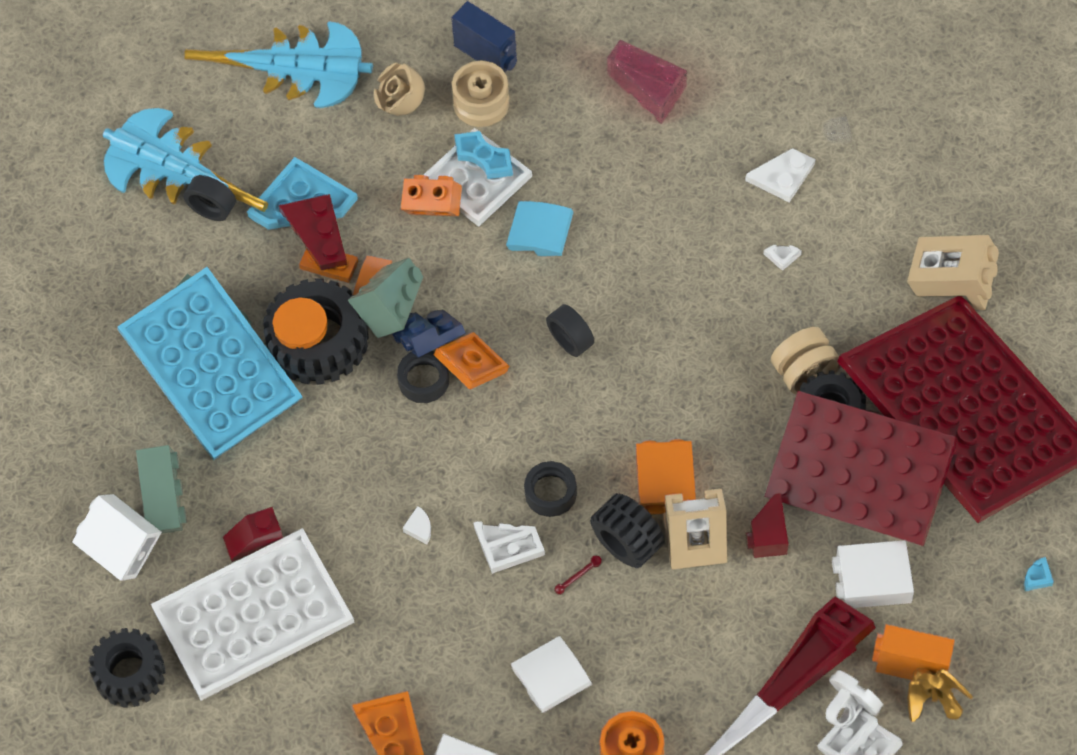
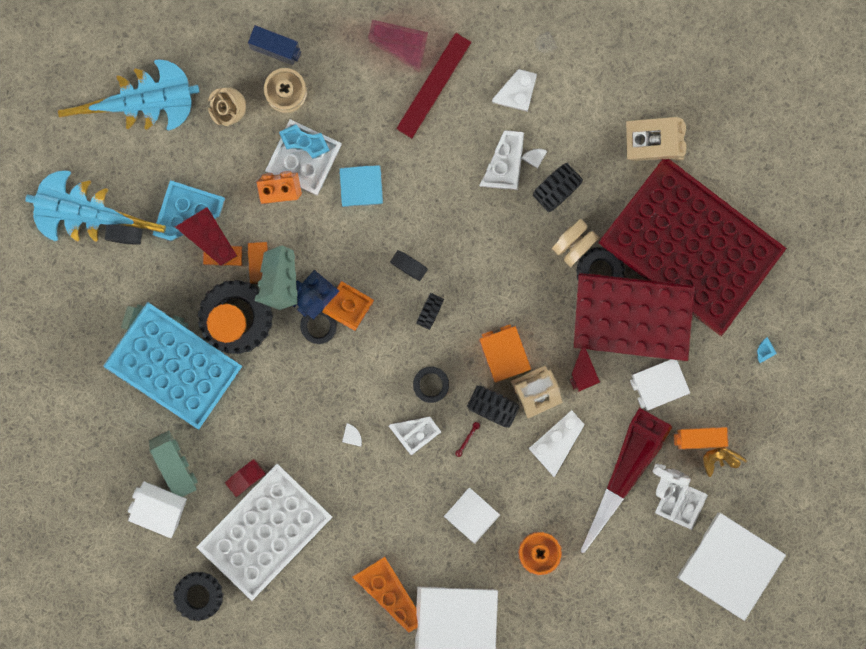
camera: 20 degrees left, 25 degrees up
(579, 393) = (430, 311): none -> black tyre
(674, 141) = (433, 85): none -> dark red tile
(702, 613) = (557, 442): none -> white wing
(742, 251) = (506, 163): none -> white wing
(801, 286) = (557, 187): none -> black tyre

